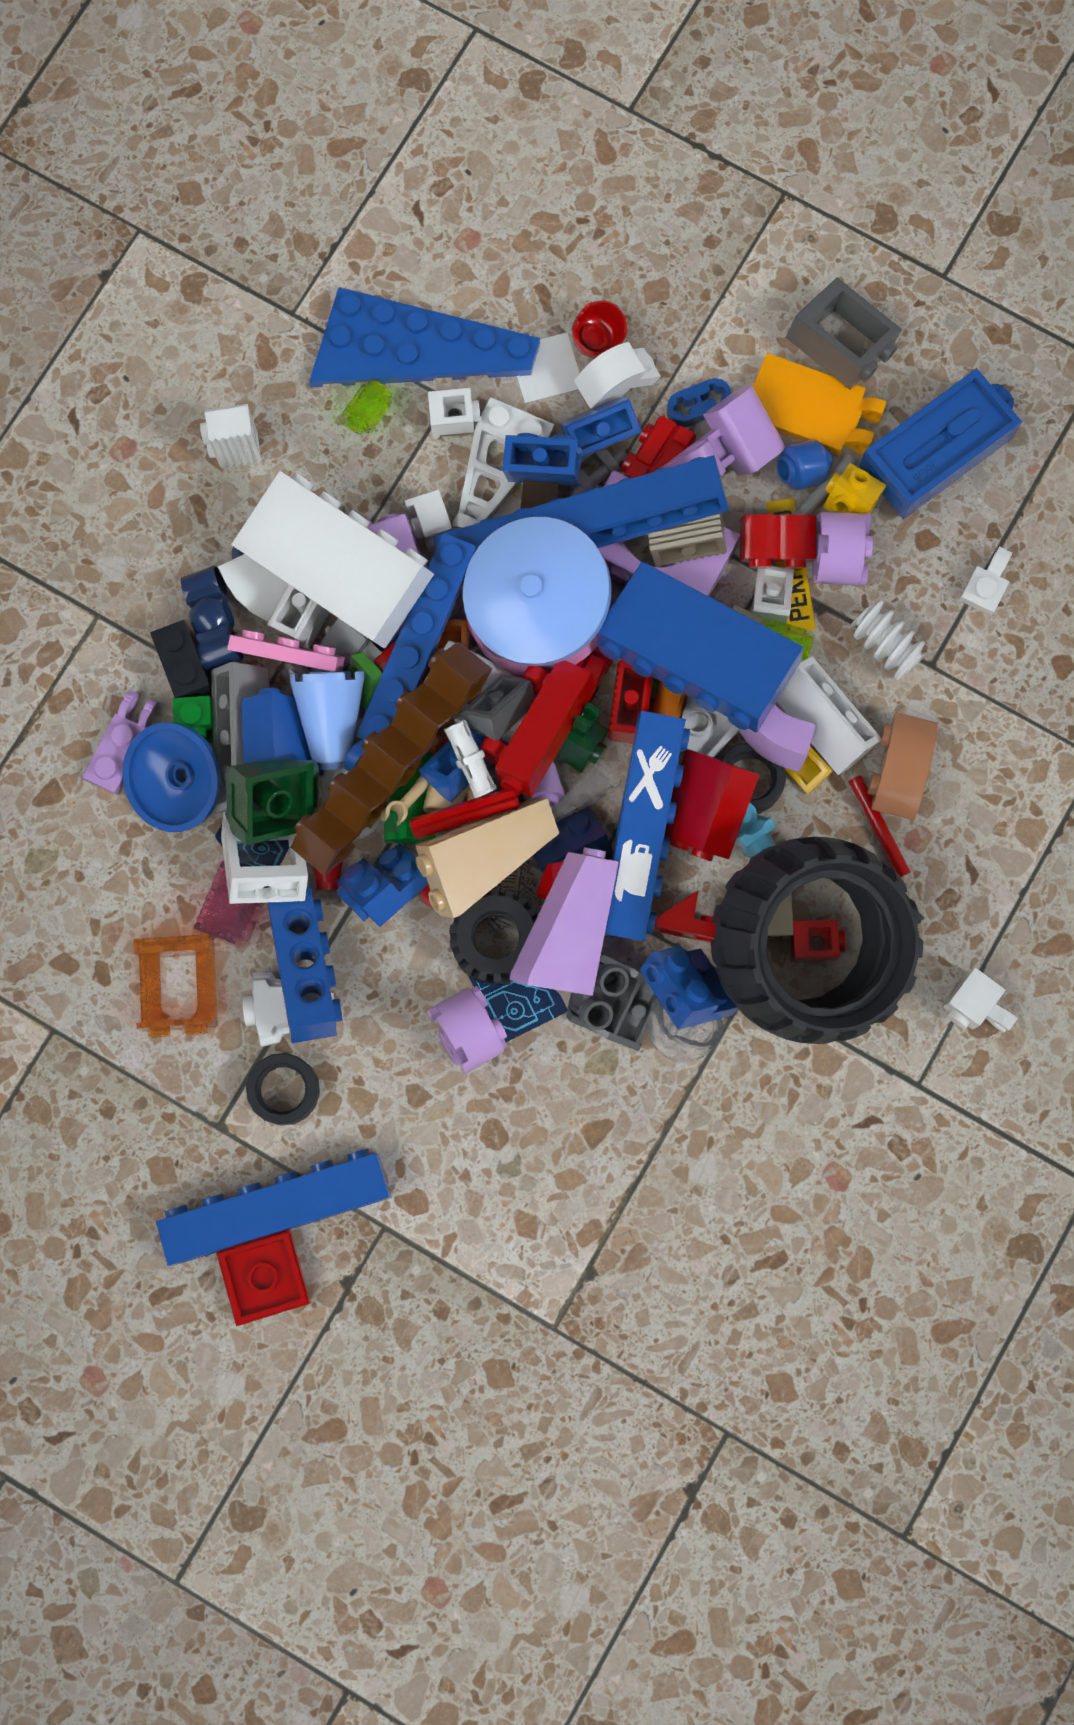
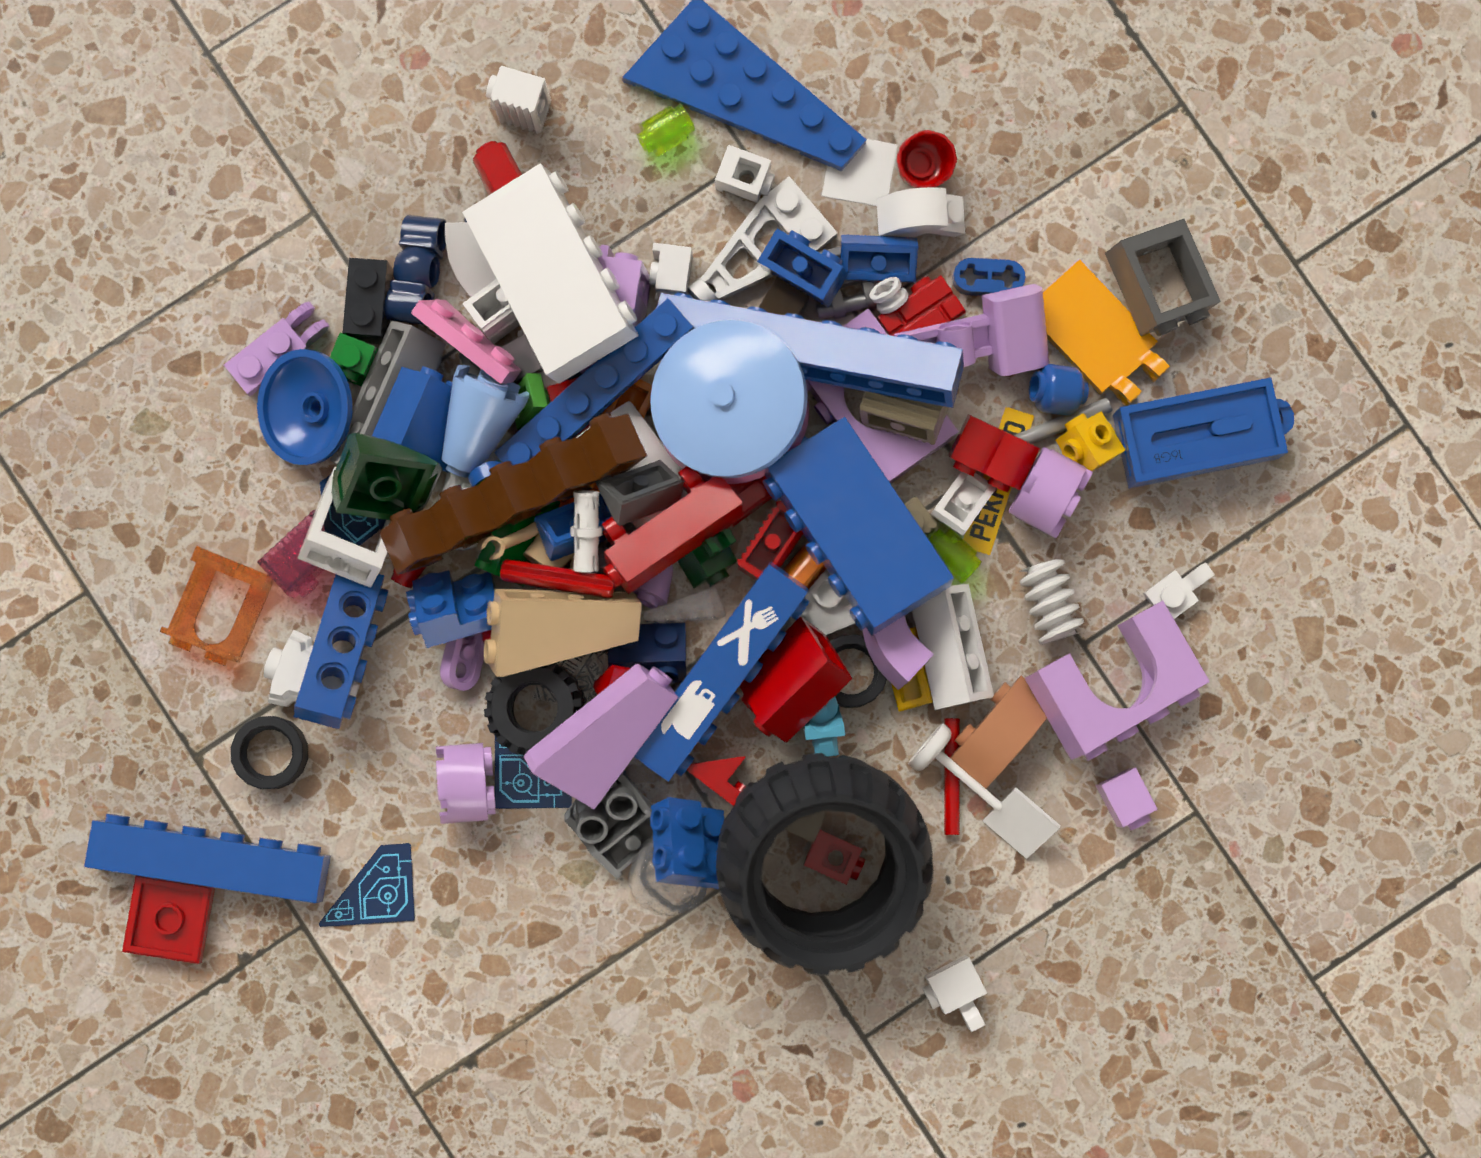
camera: 25 degrees right, 5 degrees up
(238, 498) = (495, 165): none -> red brick
(413, 928) = (468, 657): none -> lavender plate
(436, 1165) = (379, 891): none -> dark blue sticker
(625, 451) = (888, 295): none -> white bush
(953, 835) = (1013, 819): none -> white piece
(973, 720) = (1168, 676): none -> lavender arch
(1036, 772) = (1127, 799): none -> lavender brick

